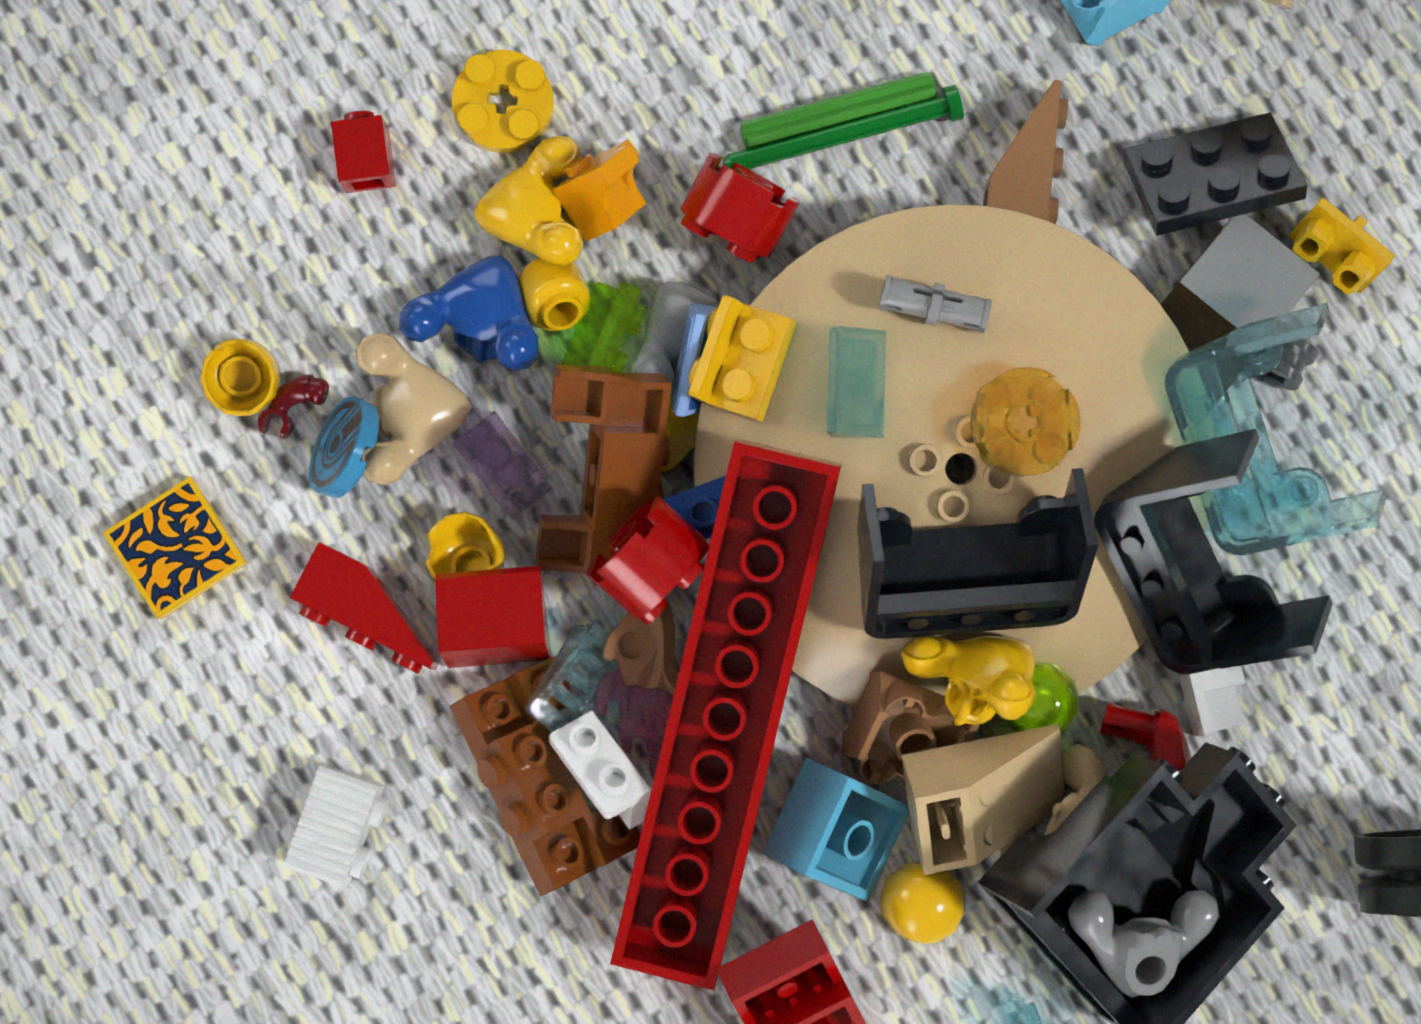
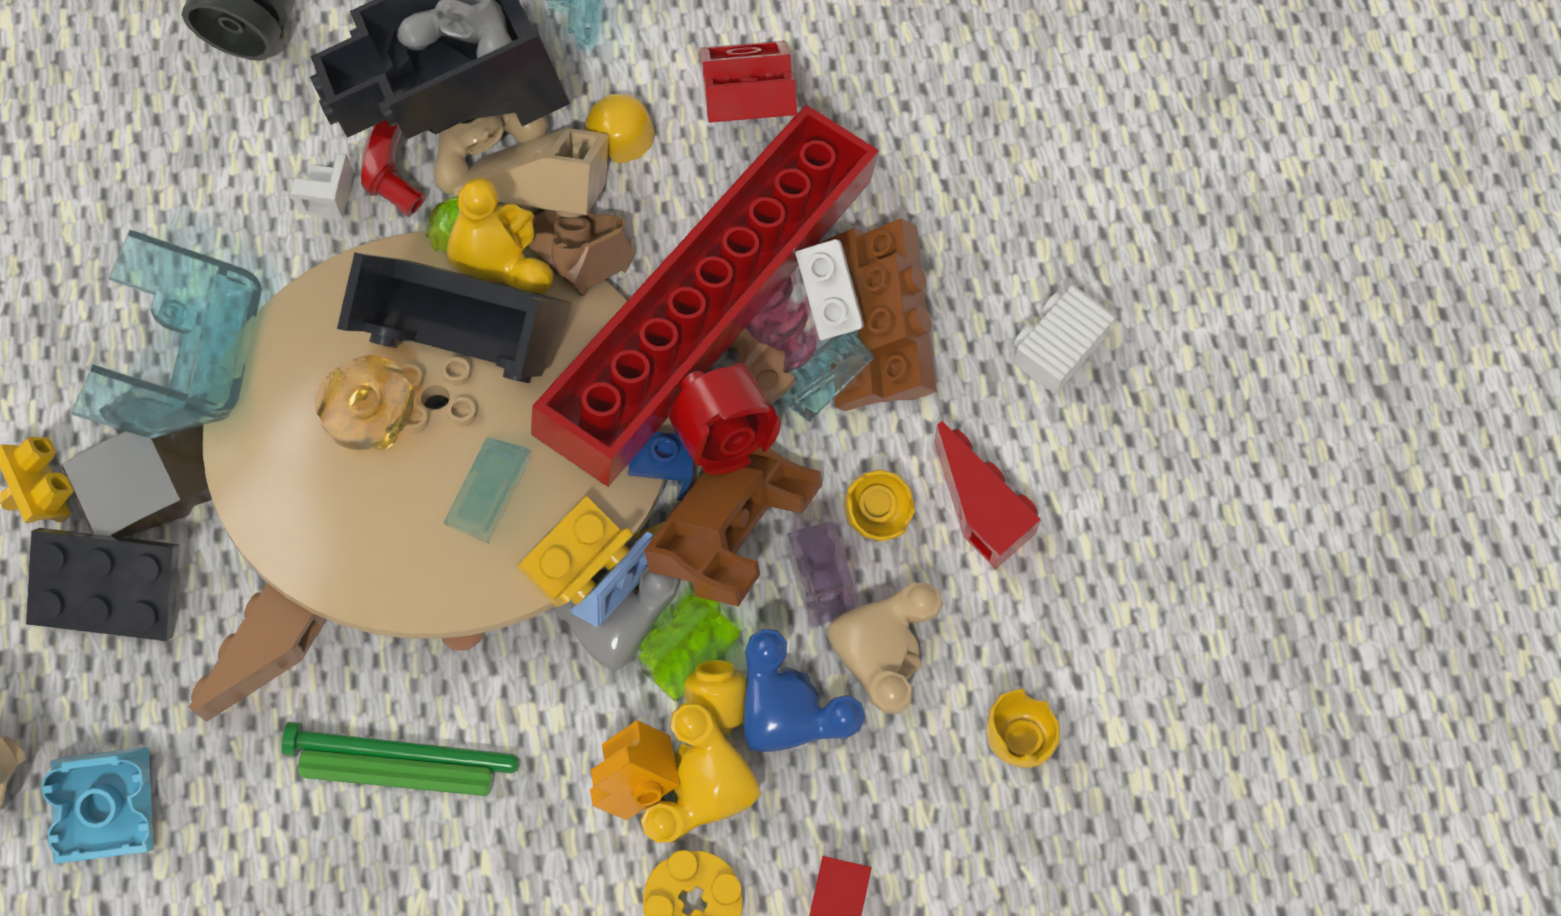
camera: 160 degrees left, 15 degrees down
(175, 548) = (1128, 612): tile -> none
(295, 391) = (976, 705): dark red arm -> none
(340, 446) = (951, 629): dark azure tile -> none
(492, 617) = (873, 442): red slope -> none
(737, 208) = (522, 703): red brick -> none
(836, 830) = (664, 197): medium azure slope -> none
(935, 304) = (391, 524): light grey pin -> none
(1173, 576) = (299, 243): black windscreen -> none

